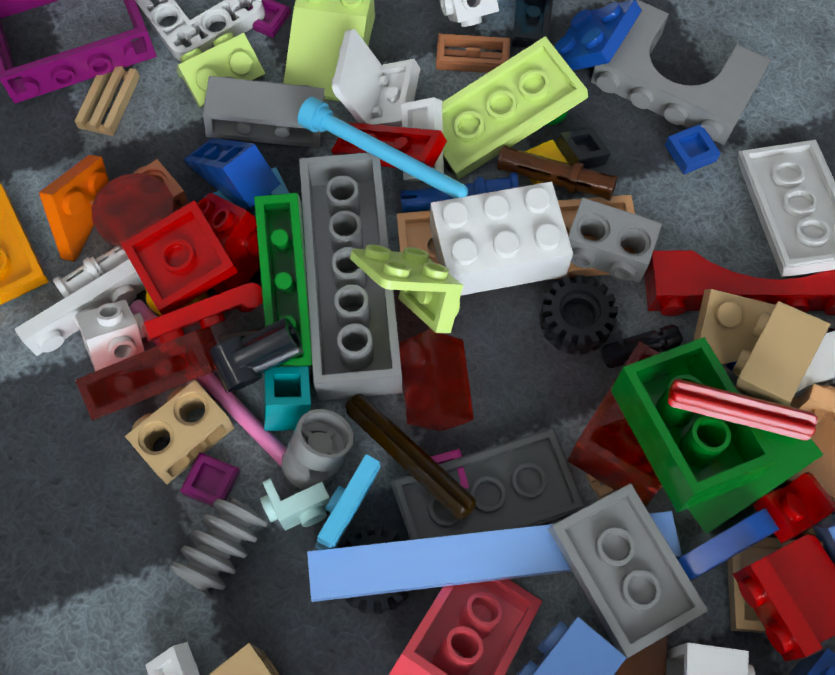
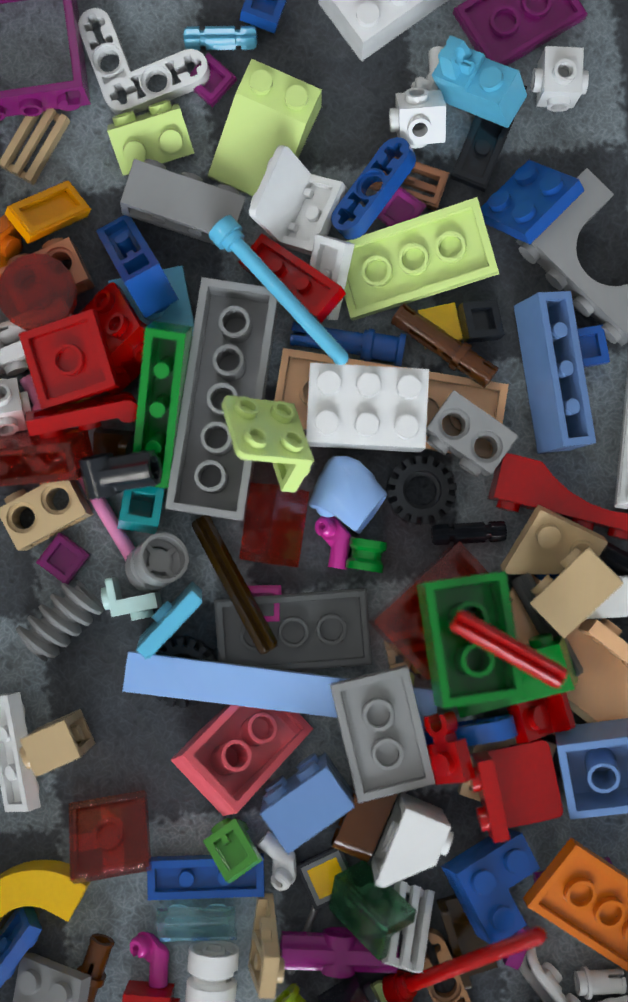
camera: 10 degrees right, 20 degrees up
(131, 146) = (47, 211): none -> light orange tile
(453, 38) = (382, 161): none -> blue beam
(471, 69) = (401, 208): none -> magenta tile
(504, 324) = (347, 492): none -> light blue piece
(506, 385) = (337, 538): none -> dark pink arm
(542, 391) = (366, 554): none -> green wheel
(673, 173) = (554, 372): none -> medium blue brick
(712, 570) = (447, 754): none -> red plate

